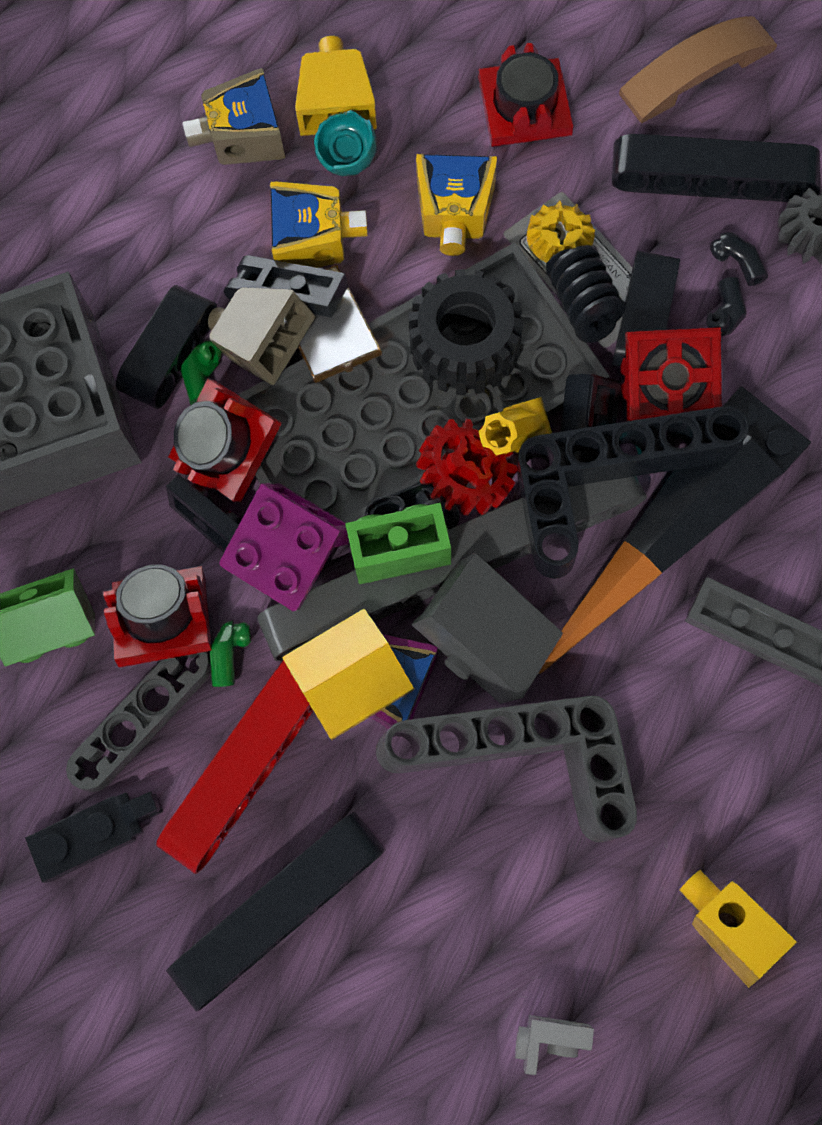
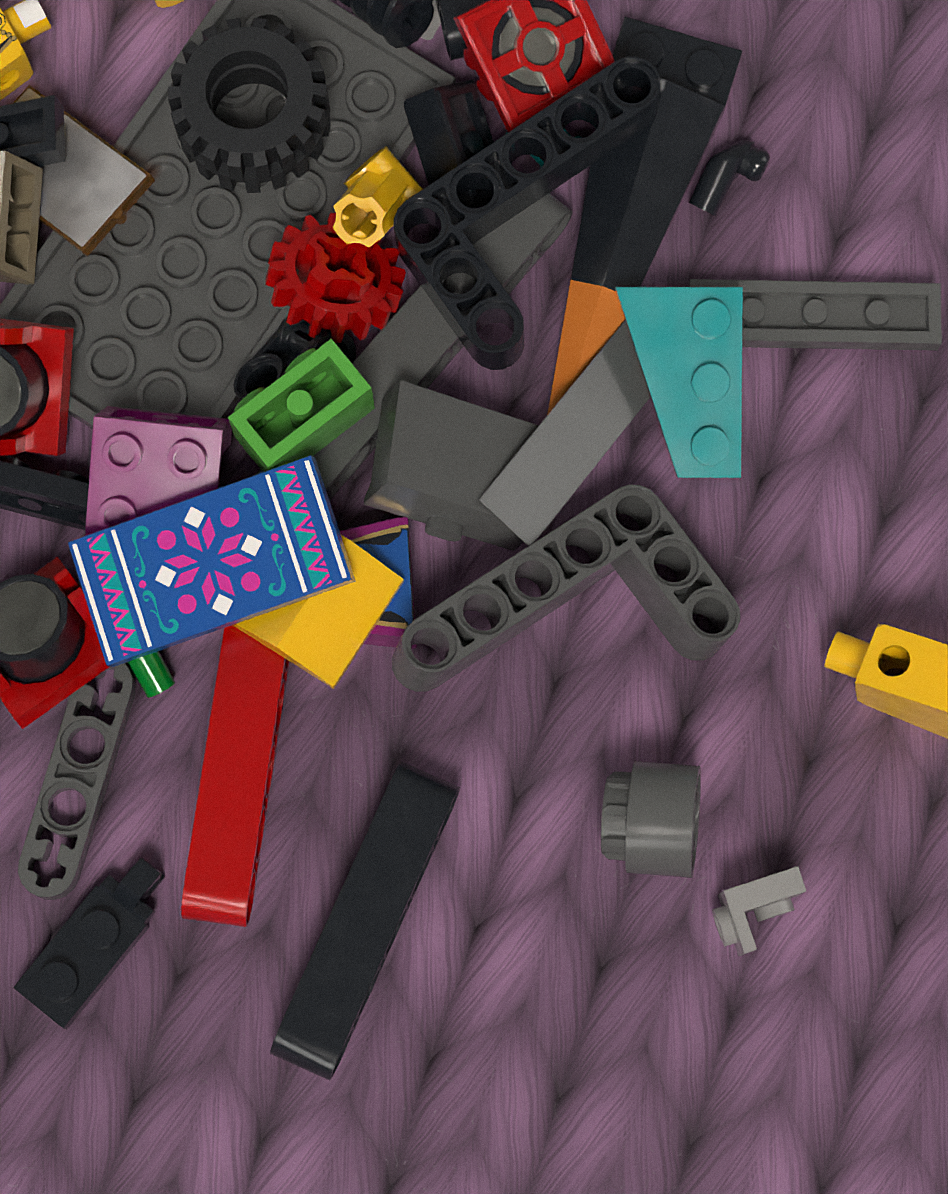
camera: 30 degrees left, 5 degrees up
(290, 615) = (211, 561): none -> blue tile
(506, 940) = (652, 818): none -> dark grey piece
(583, 643) = (570, 440): none -> dark grey sticker
(679, 640) = (693, 371): none -> teal wing
(765, 514) = (723, 168): none -> black arm

